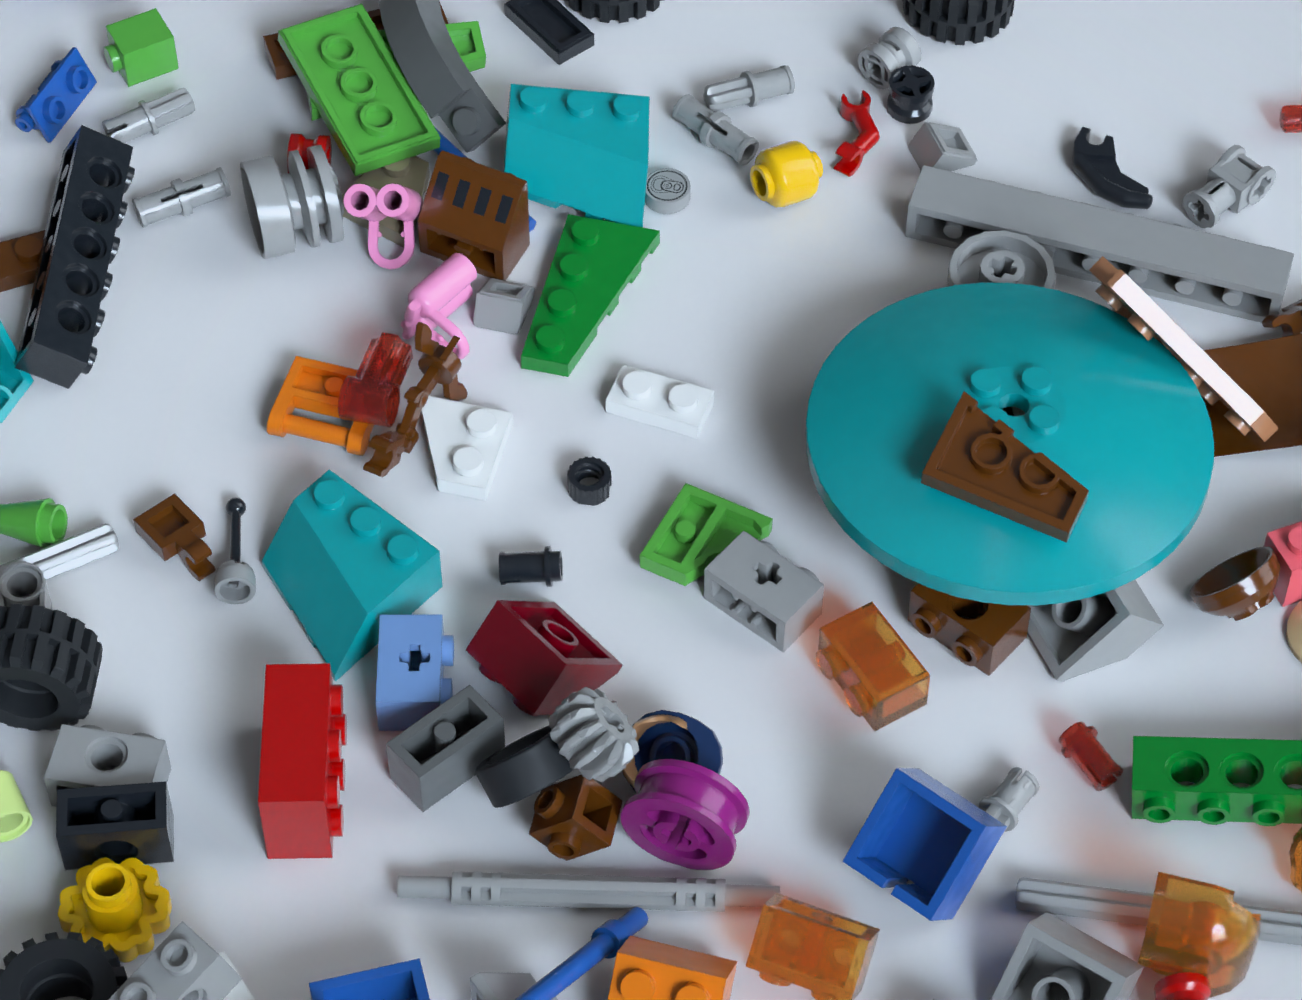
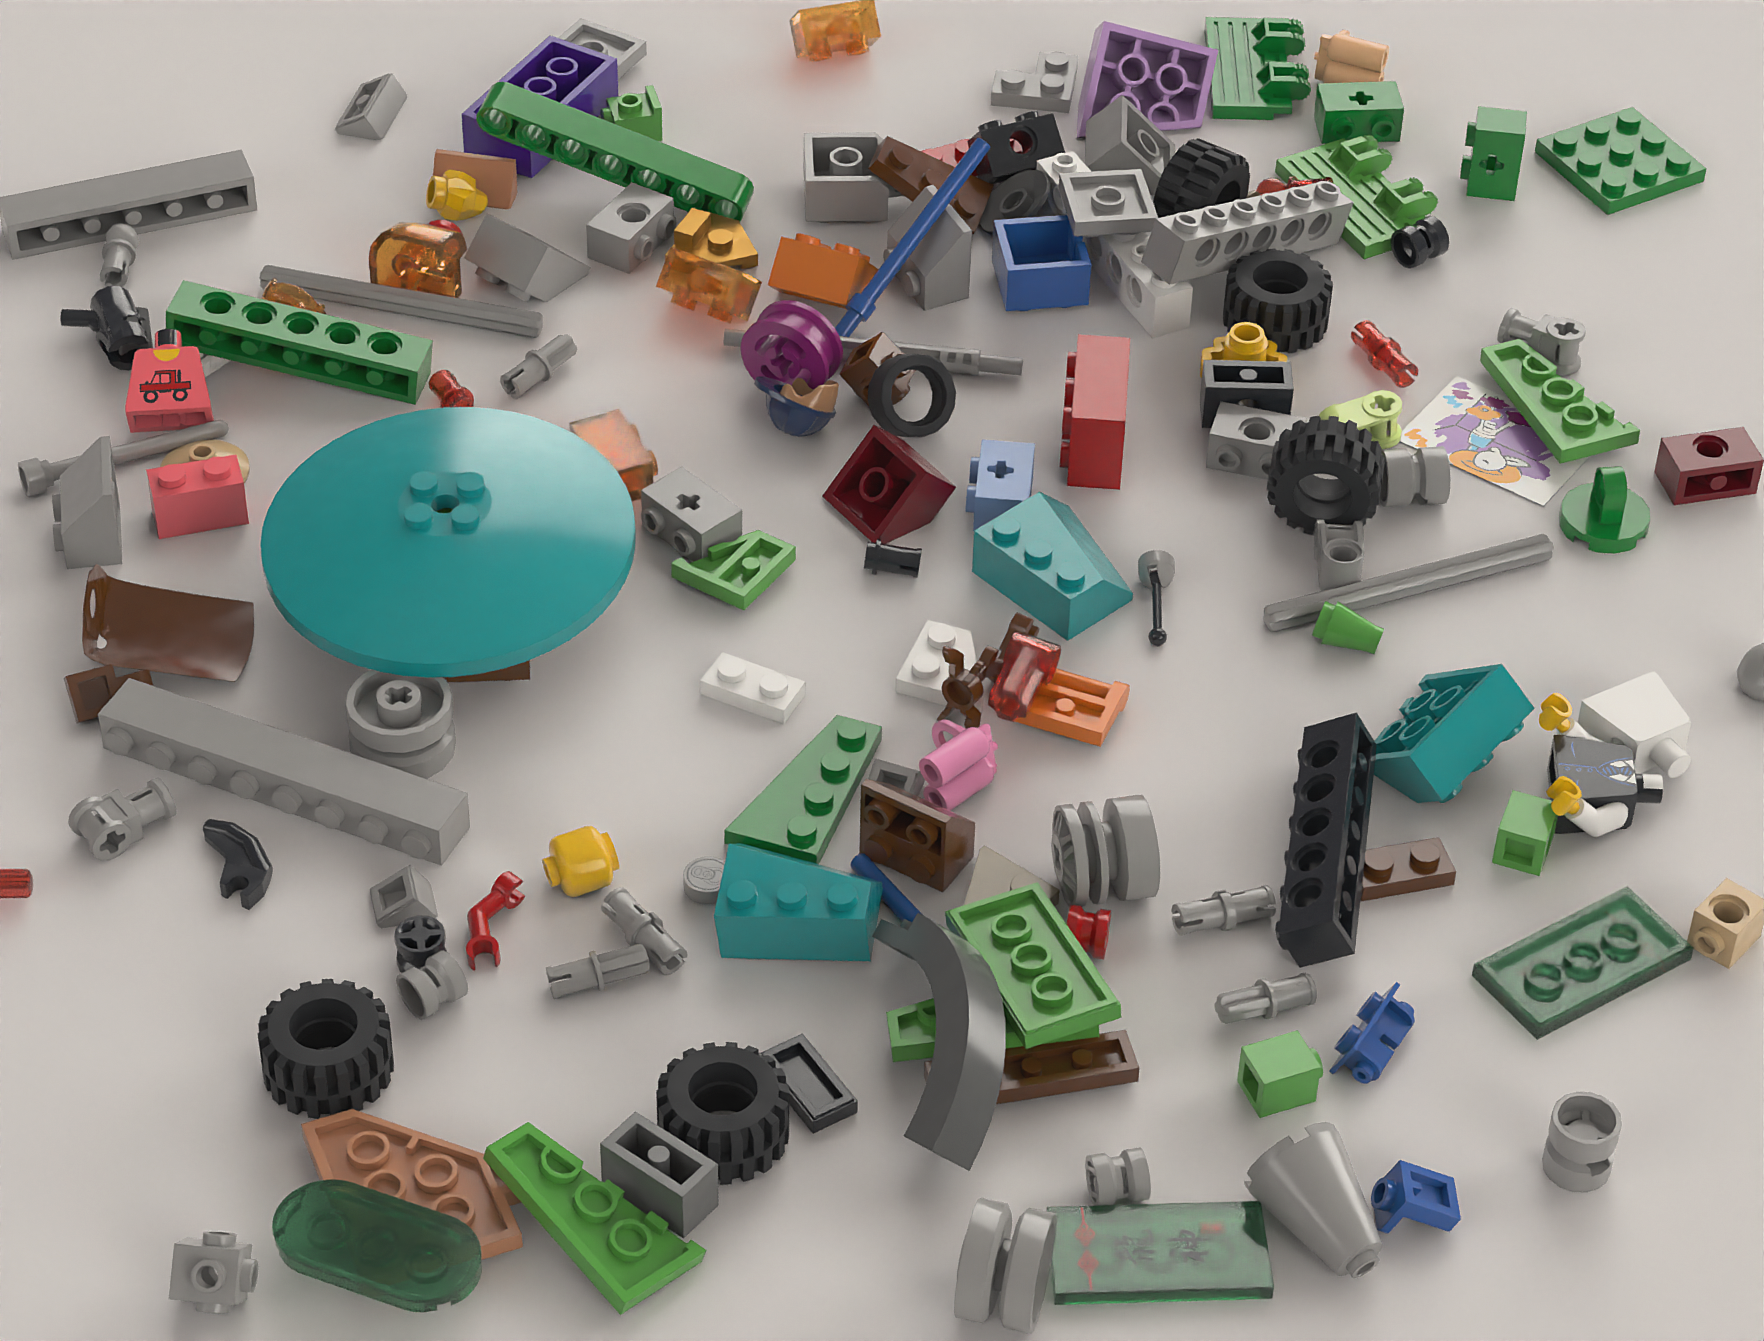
camera: 175 degrees left, 10 degrees down
(173, 530) = (1210, 610): reddish brown plate -> none
(375, 205) = (1007, 823): bright pink piece -> none
(445, 747) = (982, 411): dark grey brick -> none
(586, 468) = (830, 615): black axle -> none
(593, 734) = (859, 360): light grey gear -> none
(925, 837) = (607, 317): blue piece -> none
(998, 473) = (478, 438): reddish brown wing -> none
(1151, 321) = (260, 618): wing -> none
(1238, 584) = (278, 449): reddish brown piece -> none

